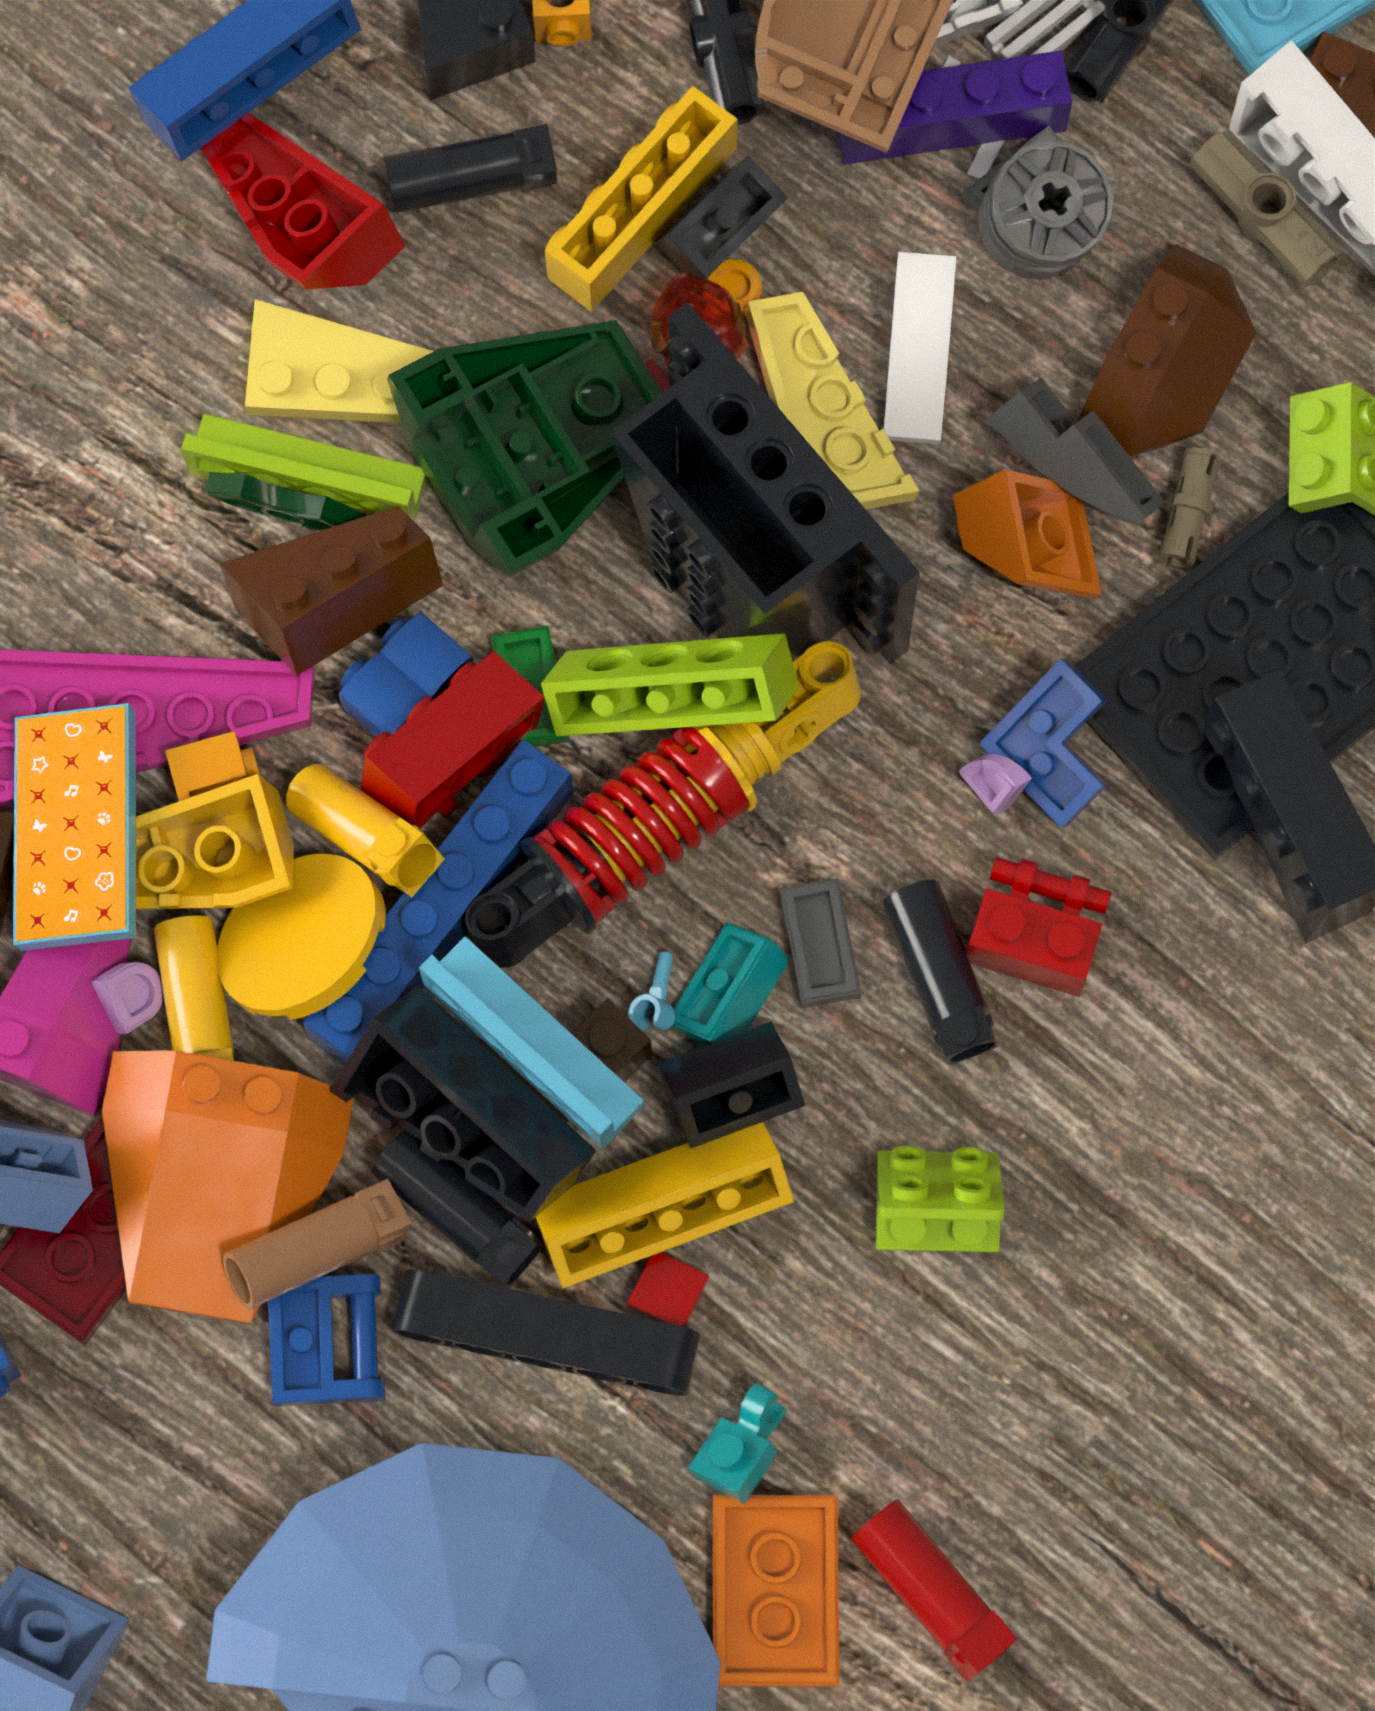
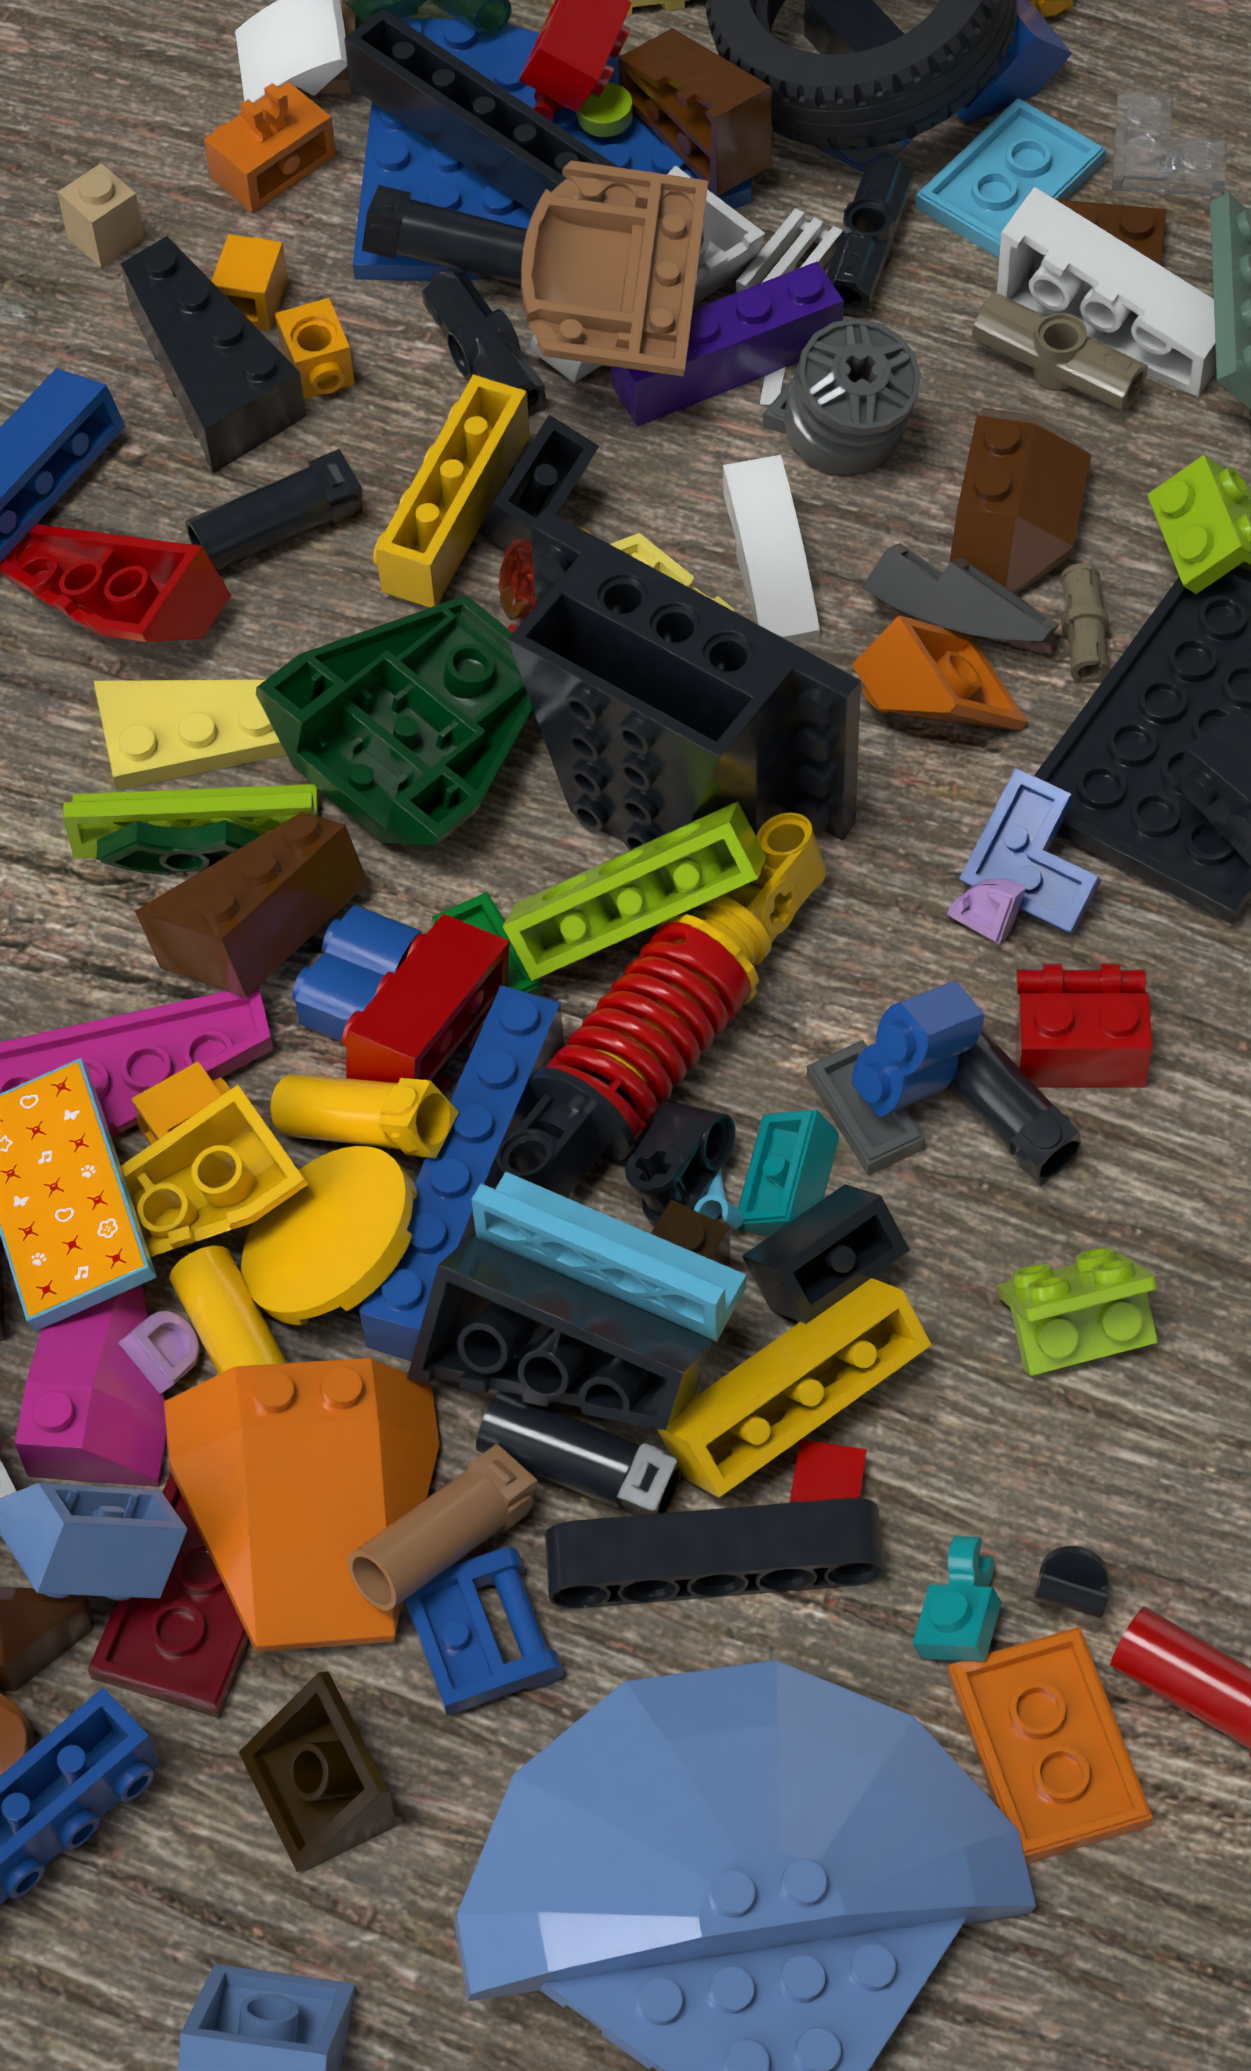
camera: 15 degrees left, 15 degrees down
(148, 1432) = (318, 1777): none -> dark brown slope
(633, 946) = (679, 1156): none -> black piece
(844, 1455) = (1074, 1580): none -> black plate
(873, 918) = (917, 1048): none -> blue brick

